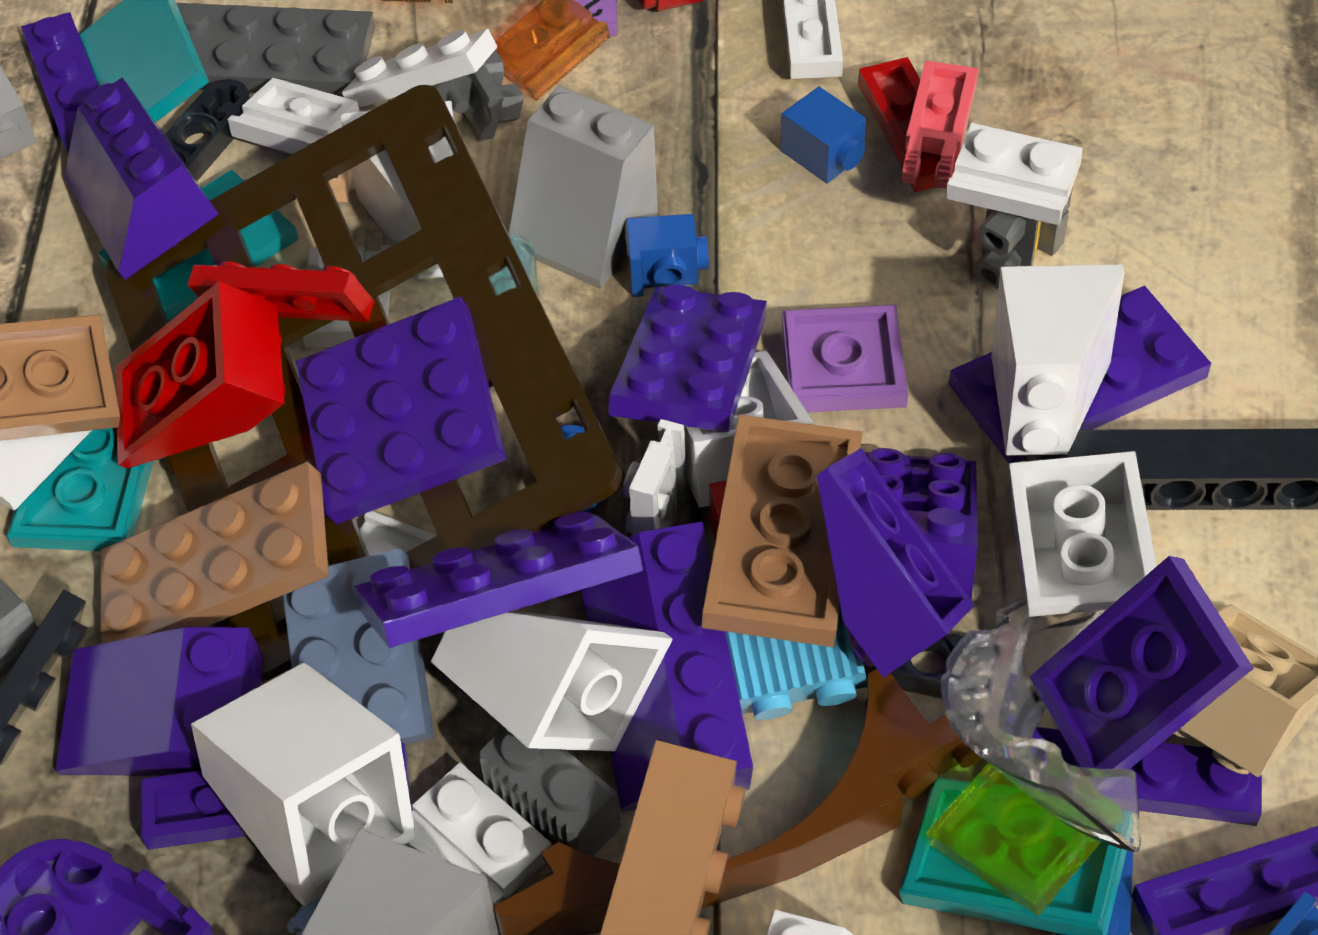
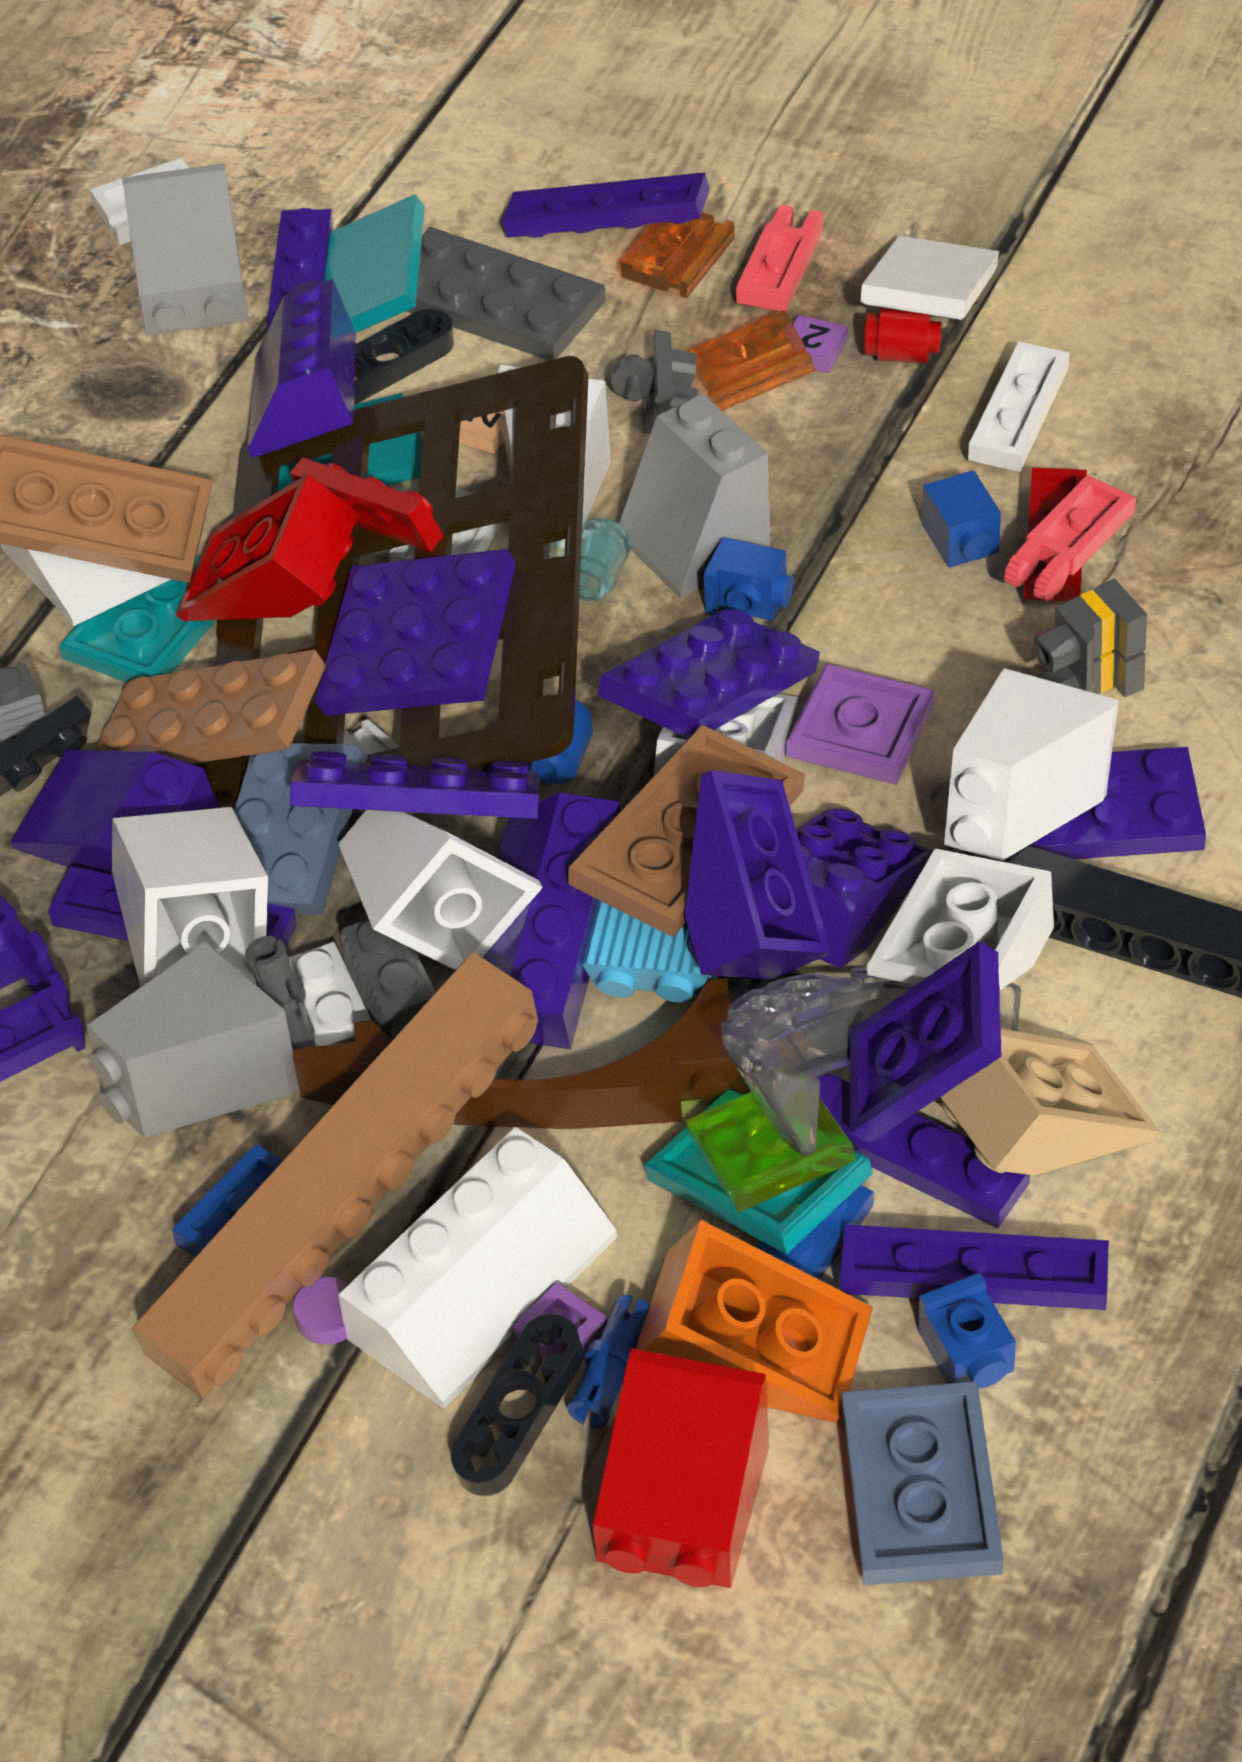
camera: 25 degrees right, 5 degrees down
(289, 116) = (471, 354): white plate -> none
(416, 65) = (613, 347): white plate -> none
(454, 840) = (275, 978): none -> dark grey pin
(657, 481) = (615, 761): white plate -> none
(1014, 173) = (1085, 595): white plate -> none

